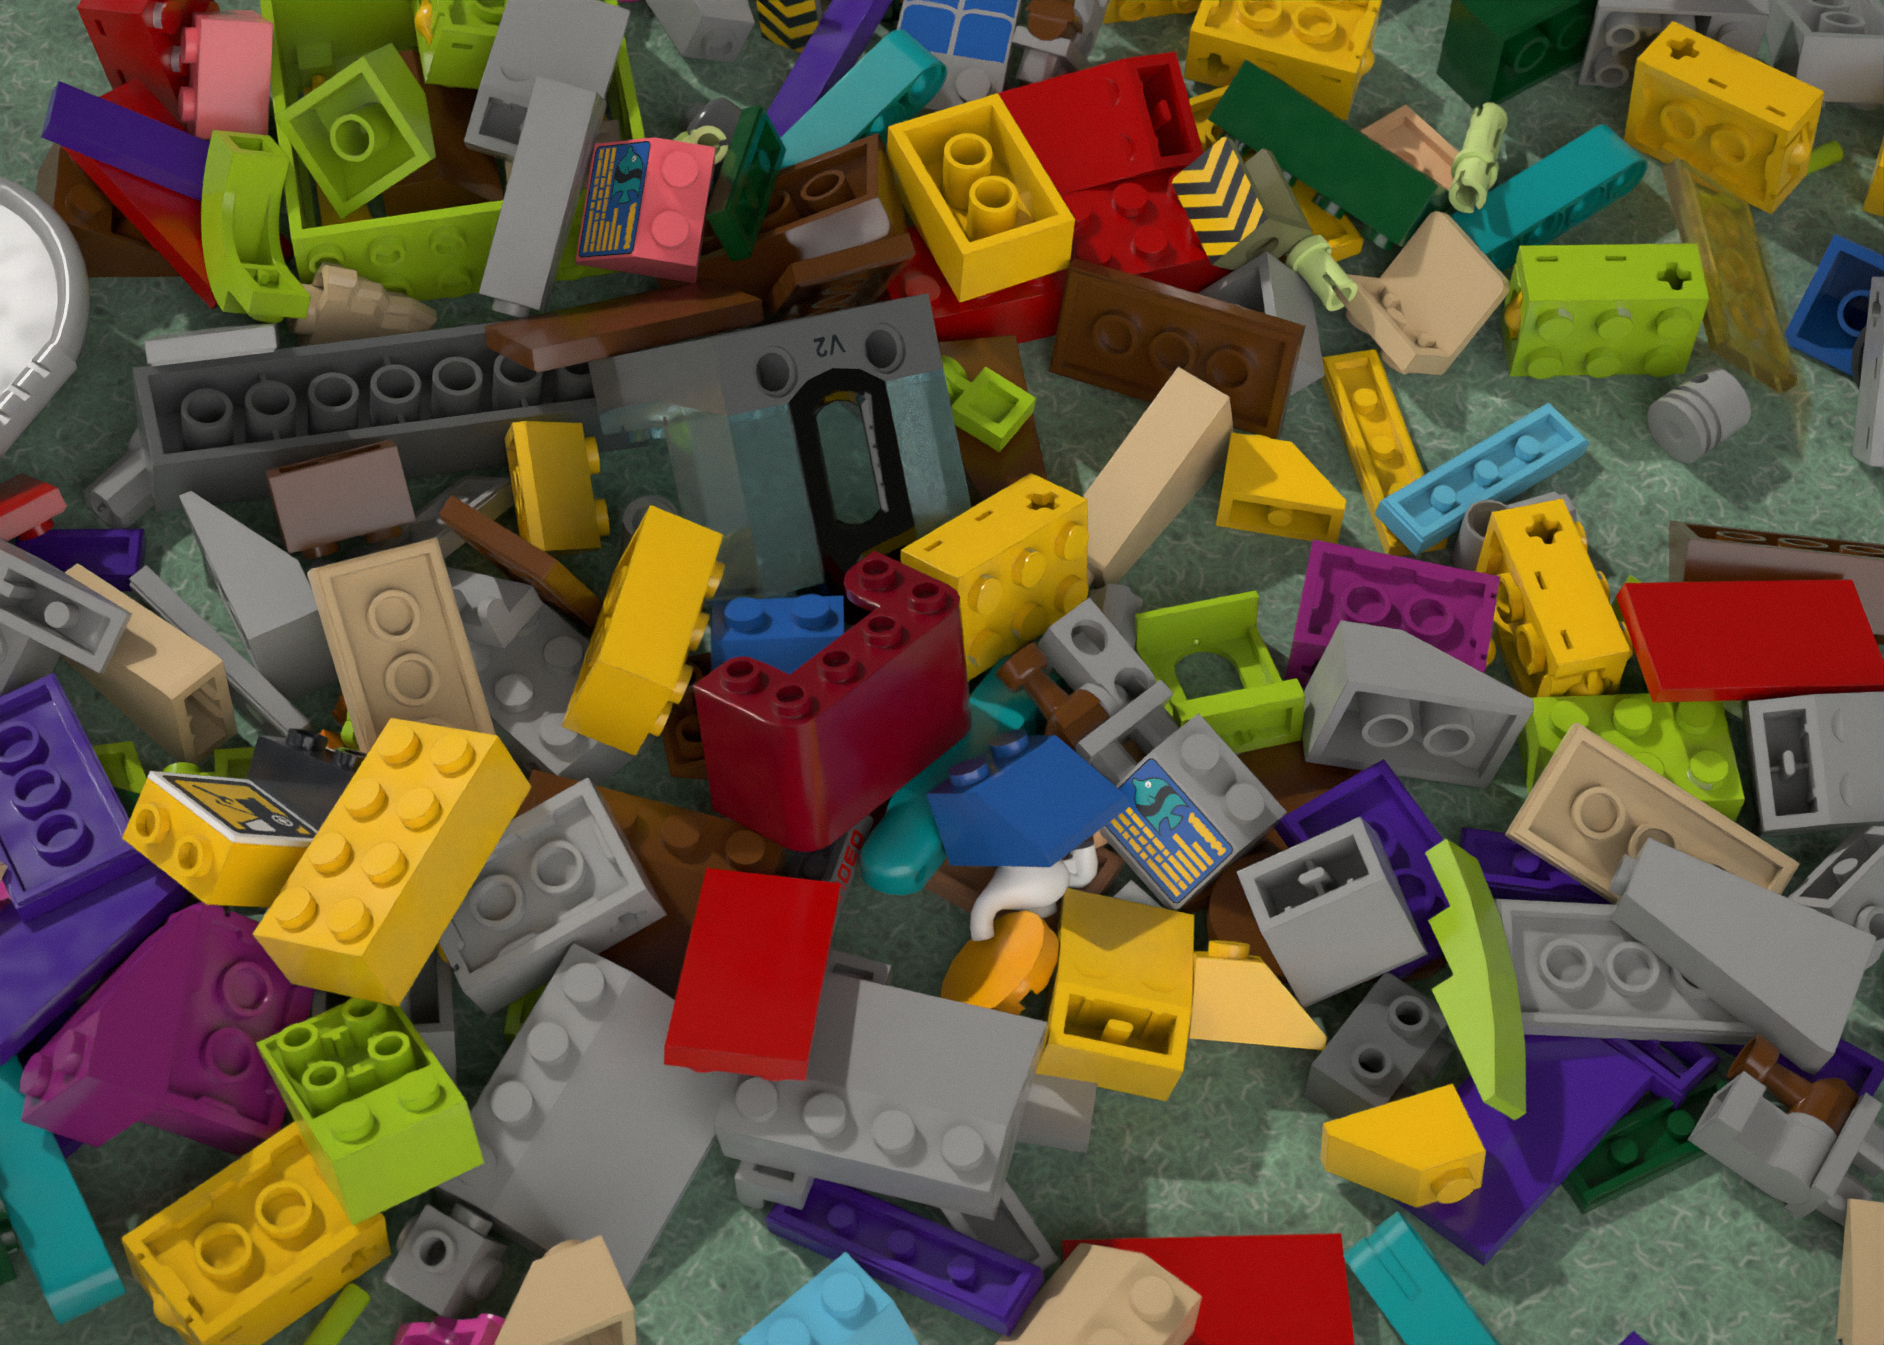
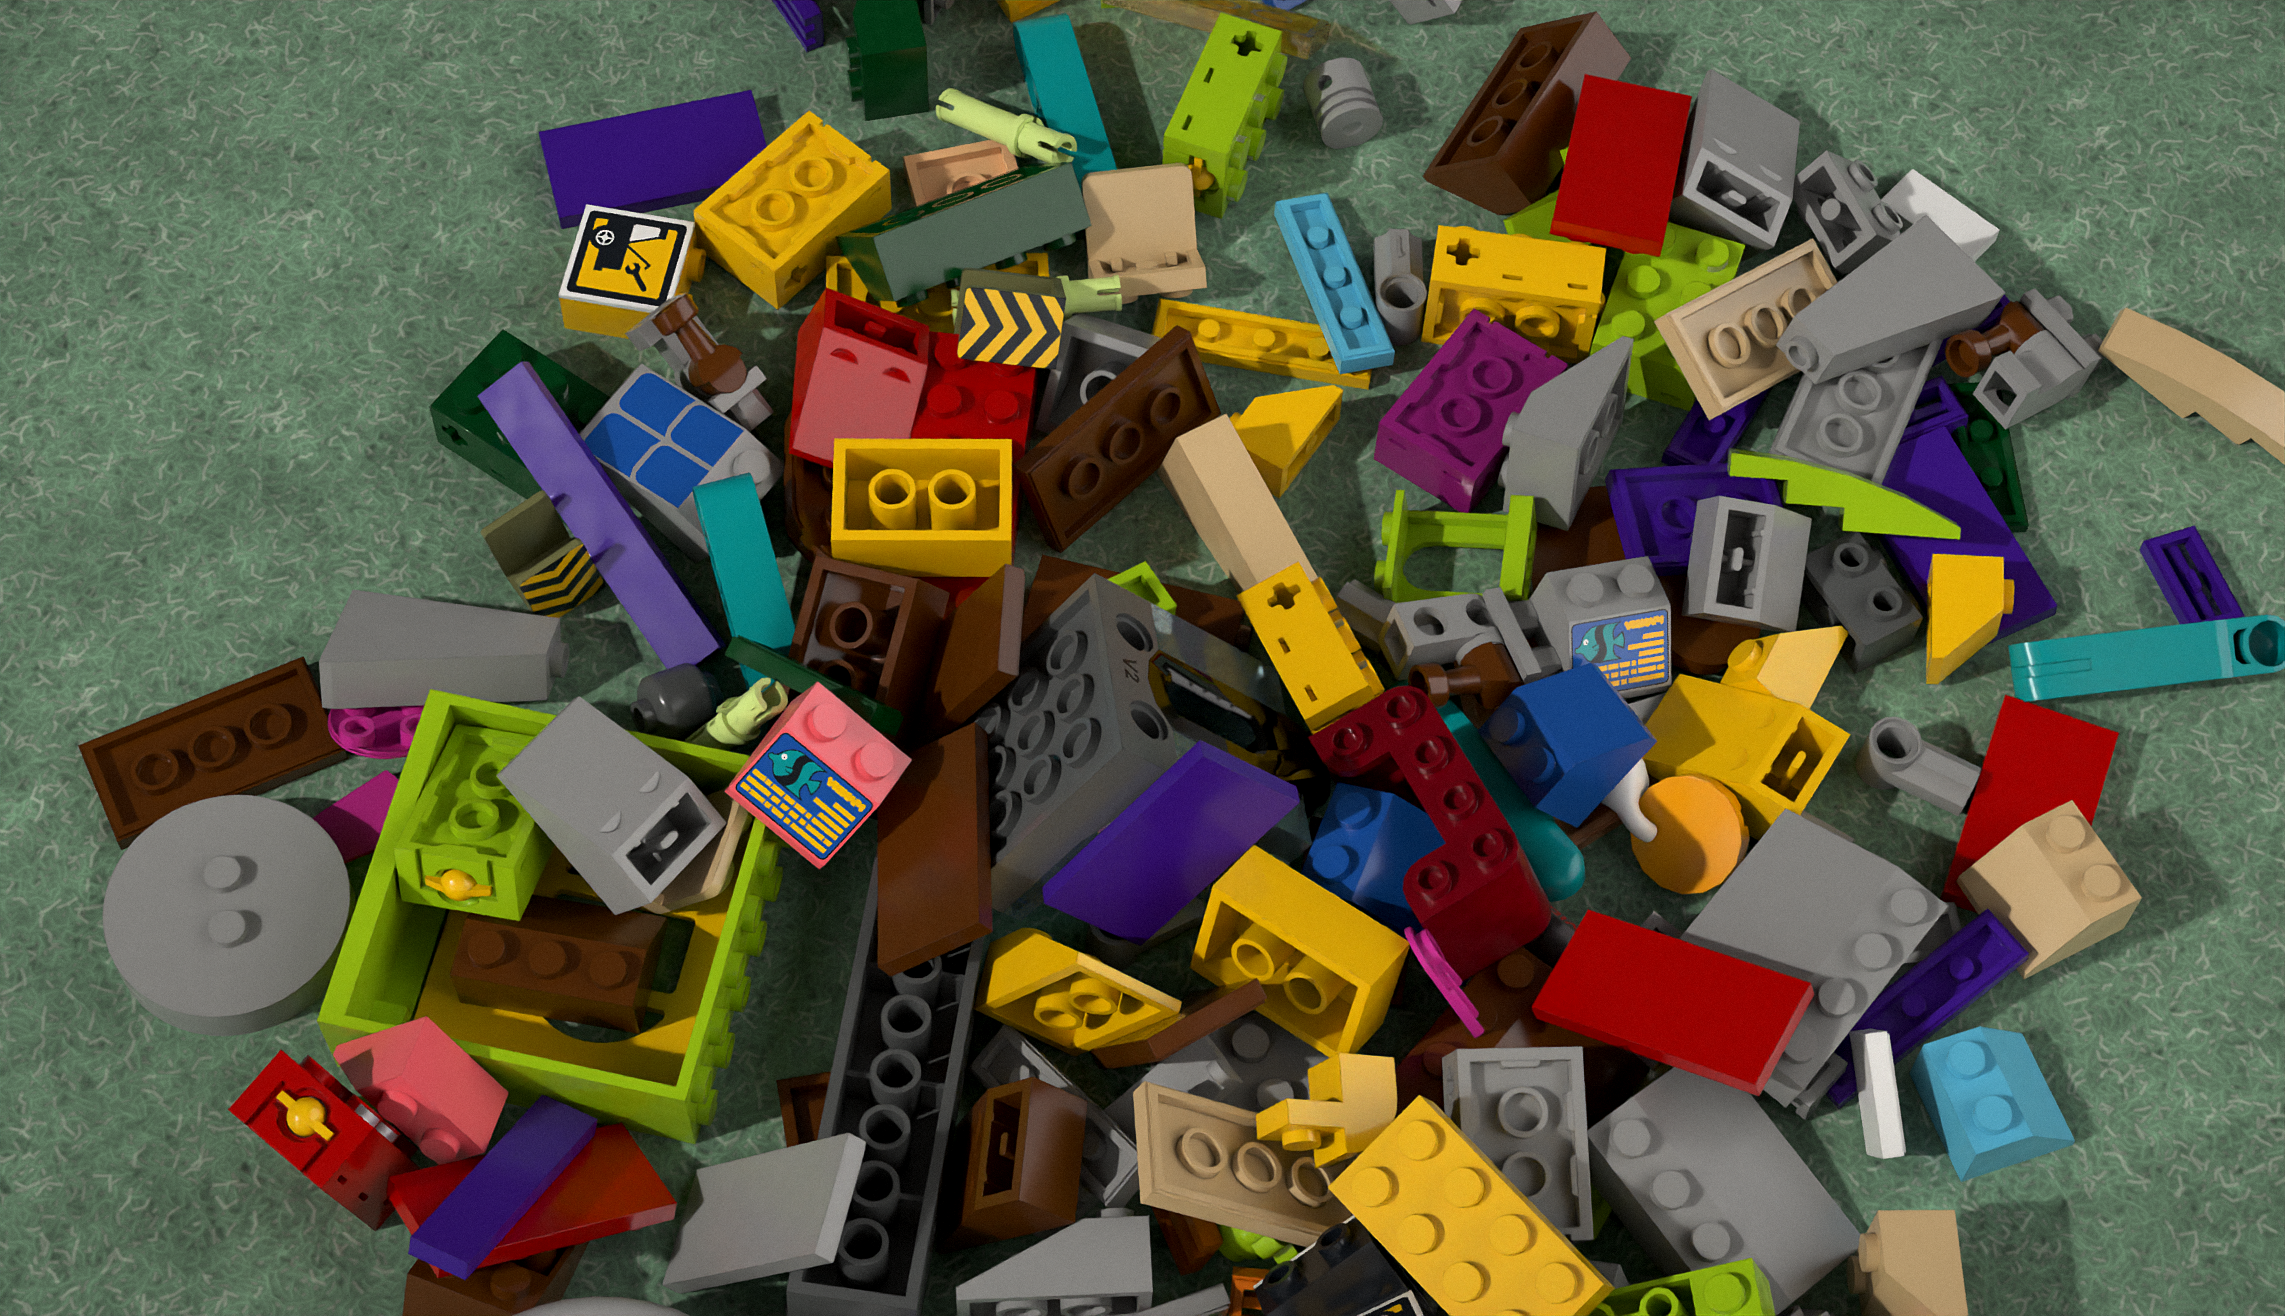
camera: 65 degrees left, 5 degrees up
(242, 228) = (636, 1155): lime arch -> none
(356, 308) = (742, 1095): tan rock -> none
(362, 129) = (575, 990): lime slope -> none
(526, 726) = (1347, 1109): none -> yellow brick
(542, 195) = (770, 849): light grey slope -> none
(673, 756) = (1444, 977): none -> dark pink piece
(692, 461) = (1170, 843): none -> dark purple tile
(776, 1234) = (1877, 1093): none -> white tile
(1205, 1176) = (1920, 766): none -> light grey piece

